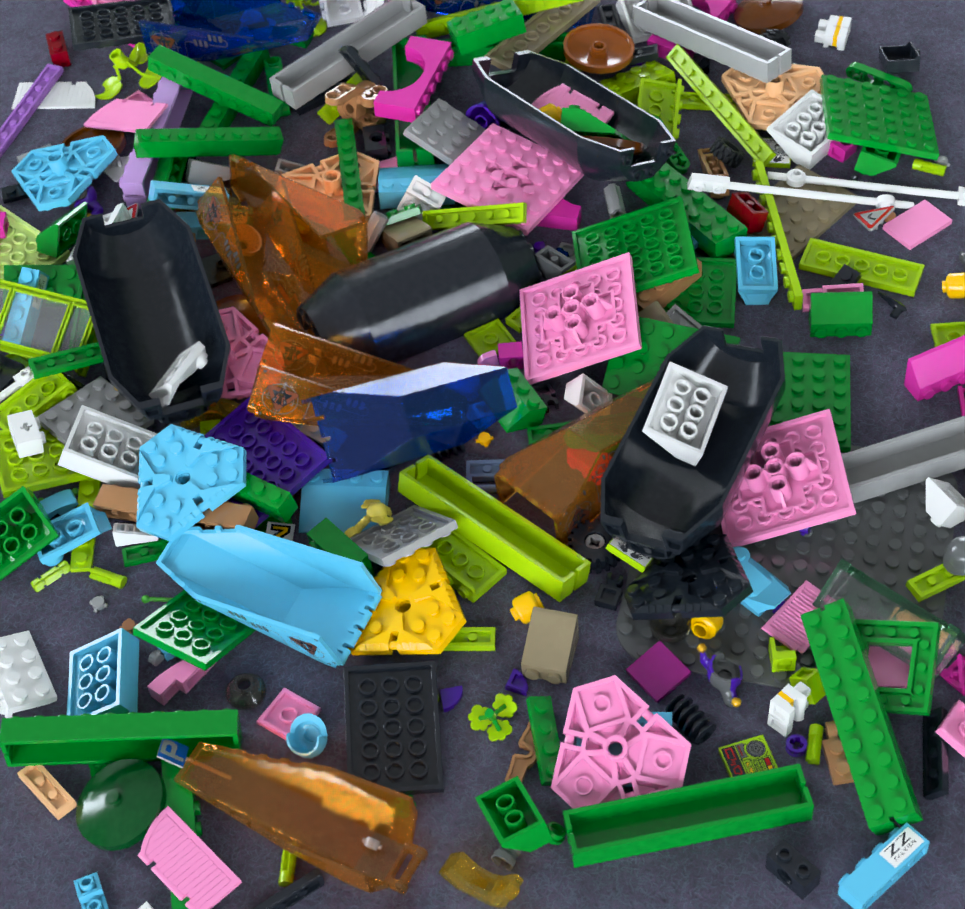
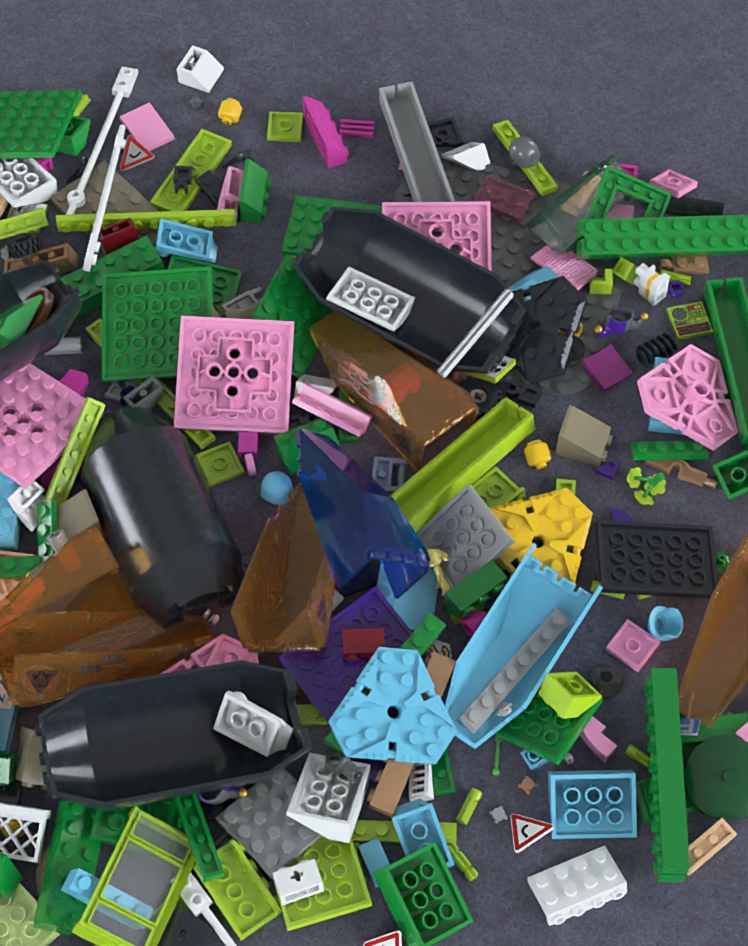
camera: 90 degrees left, 10 degrees up
(75, 625) = (527, 831): none -> piece
(130, 453) = (344, 766): none -> dark grey connector
(196, 581) = (504, 709): none -> light grey piece
(208, 634) = (568, 694): none -> lime slope
(239, 588) = (514, 670): none -> light grey plate
(263, 452) = (361, 643): none -> dark red brick
(561, 403) = (332, 409): none -> bright pink fence
(643, 497) = (475, 333): none -> axle
(844, 254) = (182, 177): none -> black plate
(891, 547) = (505, 198): none -> clear pink plate

